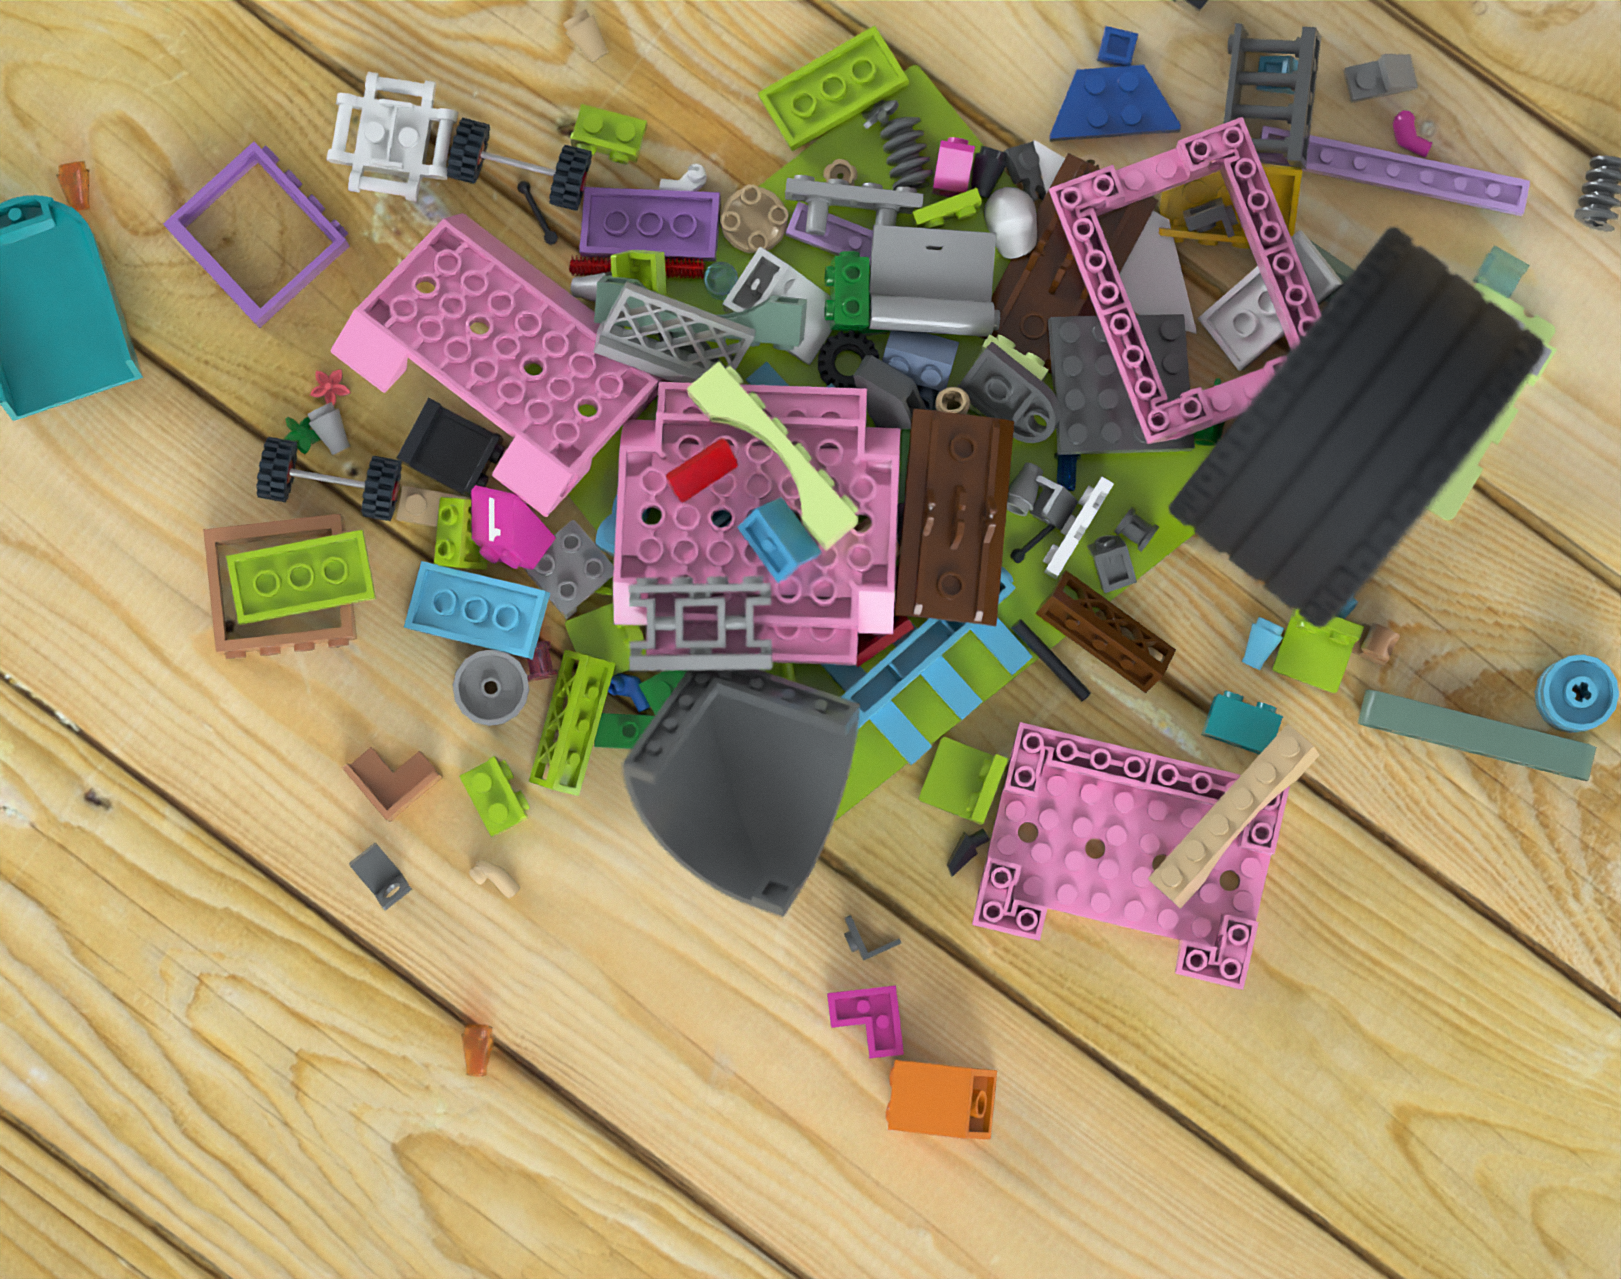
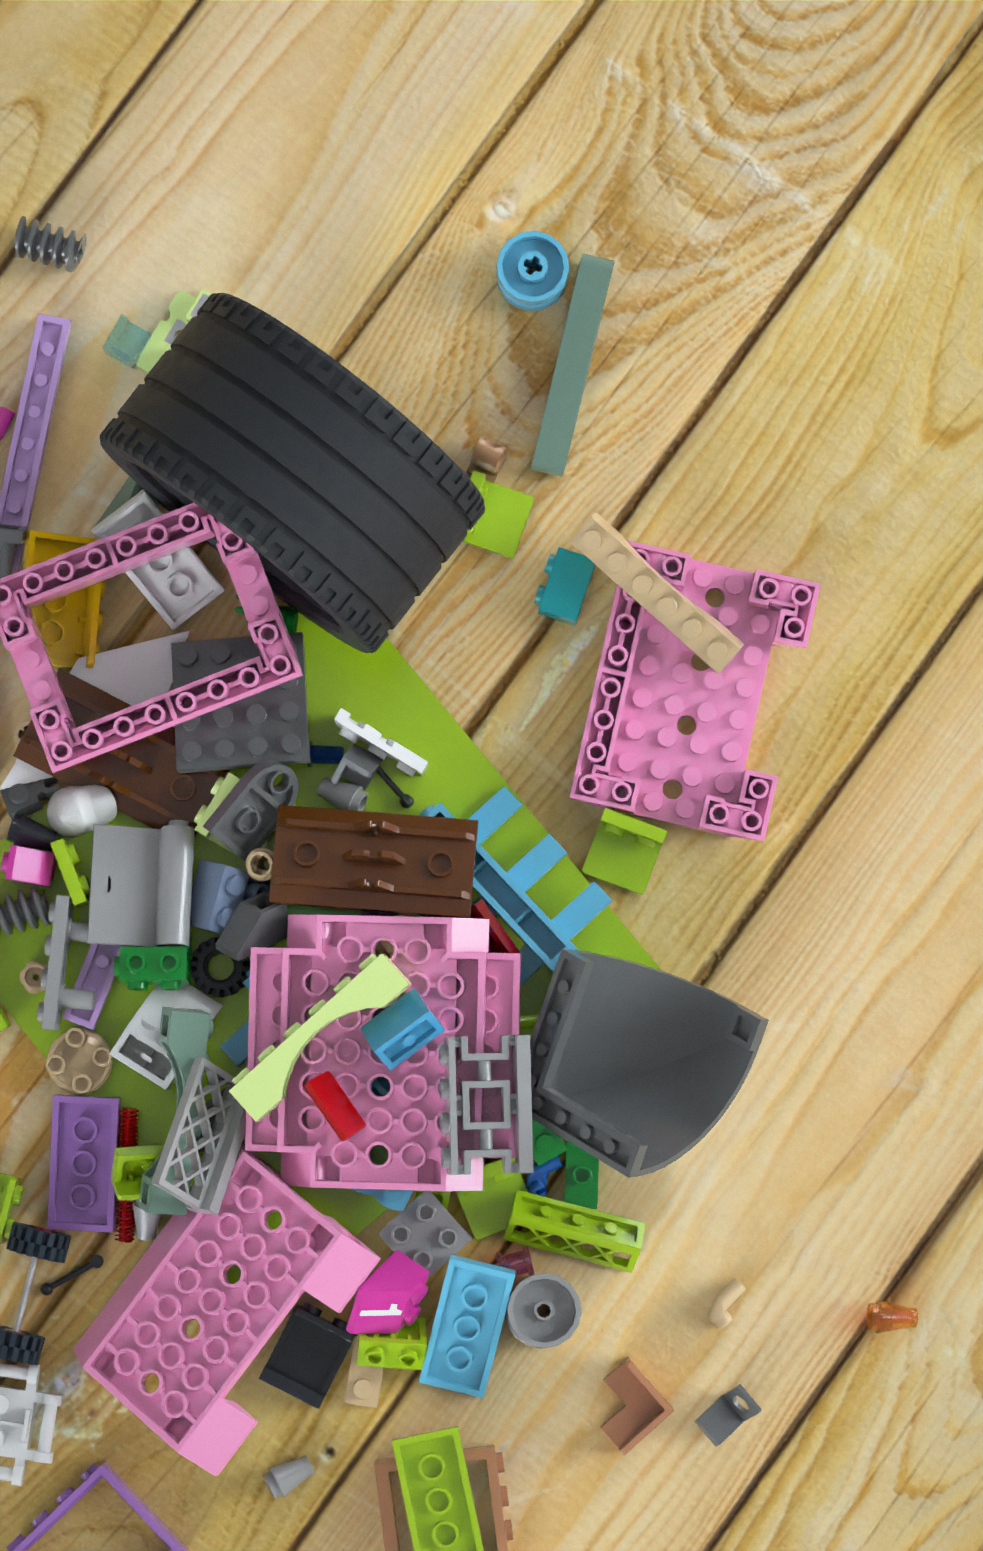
camera: 90 degrees left, 0 degrees up
(279, 467) = (331, 1525): black axle -> none
(301, 434) = (294, 1504): green plant -> none
(330, 386) = (246, 1477): coral plant -> none
(494, 796) = (646, 1305): lime bracket -> none
(691, 181) = (42, 1126): white arm -> none
(723, 274) = (135, 1091): clear light blue wheel -> none
(855, 942) = (781, 952): dark grey bracket -> none
(875, 1009) = (843, 934): dark pink plate -> none
(941, 1100) = (930, 869): orange slope -> none
(966, 850) = (690, 848): black bar -> none
(1051, 660) = (507, 768): black bar -> none
(1104, 637) = (485, 716): reddish brown fence -> none
(1112, 562) = (412, 710): dark grey bracket -> none
(1136, 529) = (380, 687): dark grey bush -> none
(1206, 215) = (74, 622): dark grey bracket -> none
(1262, 642) = (486, 567): medium azure cone -> none

